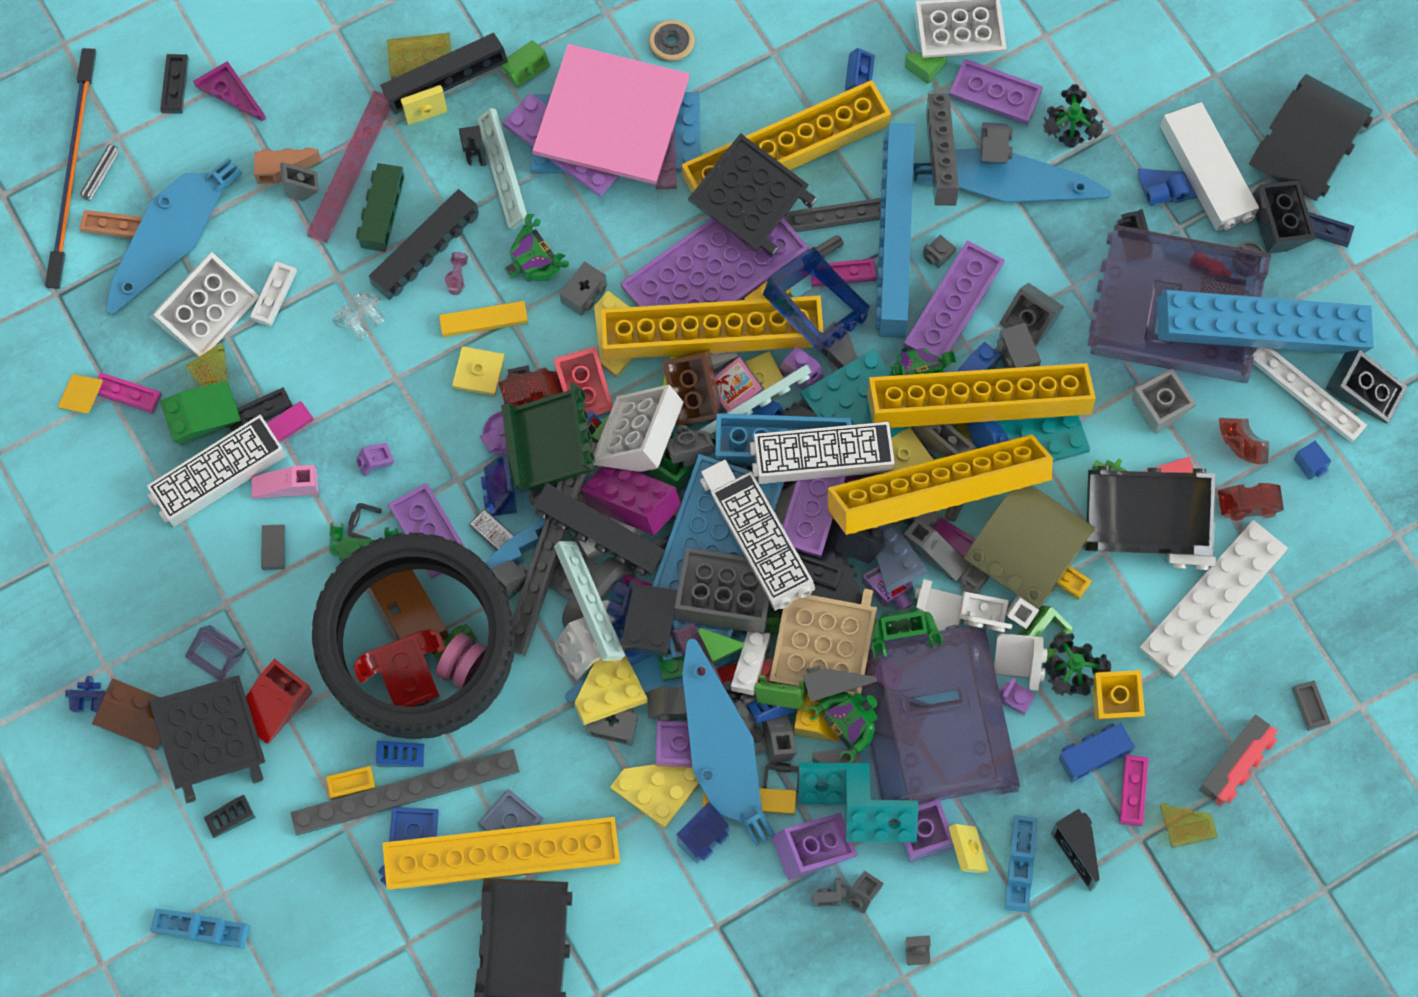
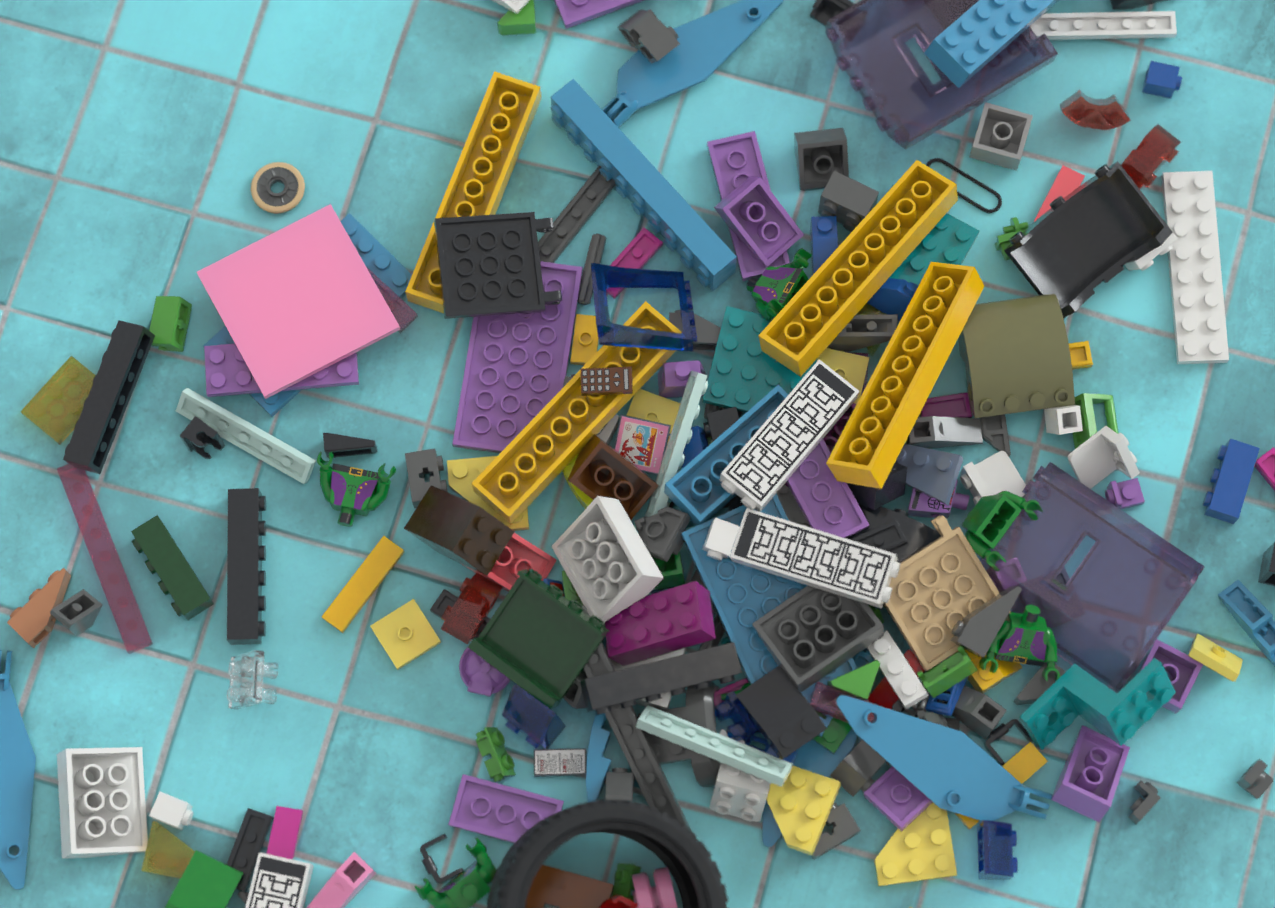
camera: 45 degrees left, 5 degrees up
(237, 347) = (171, 811): none -> white brick
(273, 294) = (153, 734): white plate -> none
(374, 457) = (394, 795): medium lavender bracket -> none
(424, 105) = (119, 441): light yellow plate -> none
(454, 279) = (304, 572): clear pink leg -> none
(463, 482) = (492, 742): none -> bright green hinge
(555, 227) = (347, 446): none -> black slope
(566, 331) = (459, 530): none -> dark brown brick
(745, 320) = (606, 381): none -> reddish brown tile
(859, 68) = (467, 72): blue slope -> none
(863, 892) = (1166, 772): dark grey bracket -> none
(938, 251) = (691, 172): dark grey bracket -> none
(942, 150) = (614, 80): dark grey brick -> none
(948, 315) = (759, 220): none -> medium lavender slope
(982, 610) = (1035, 448): white bracket -> none
(1078, 658) = (1145, 413): black plant -> none
(1118, 695) = (1207, 419): yellow slope -> none
(1119, 413) = (973, 180): none -> black piece

